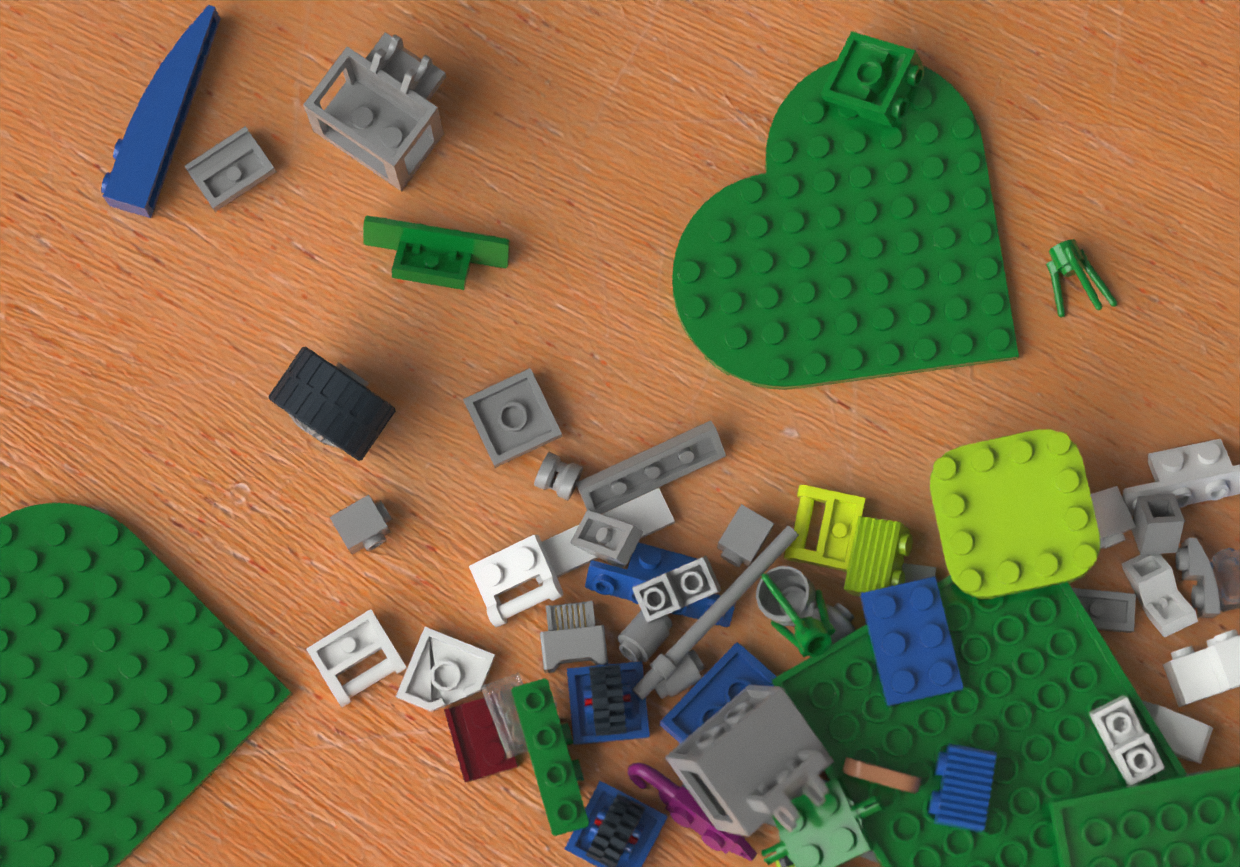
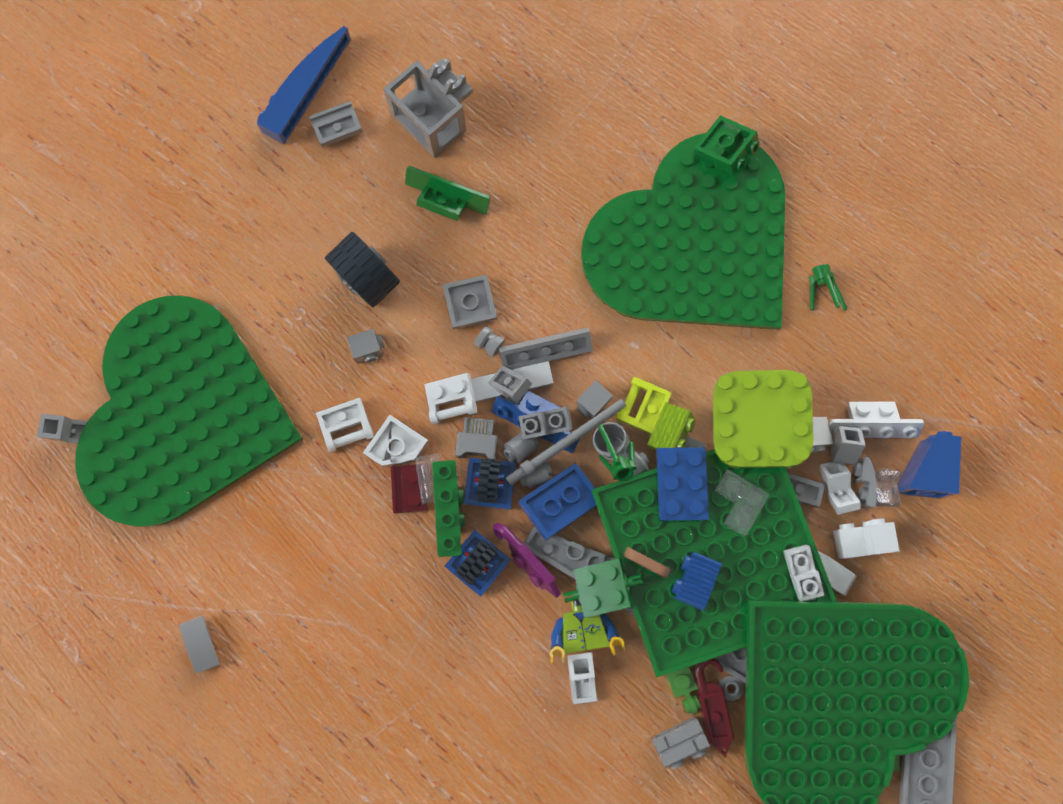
camera: 10 degrees right, 0 degrees up
(753, 762) = (569, 537): light grey piece -> none
(1019, 648) = (747, 500): none -> clear plate

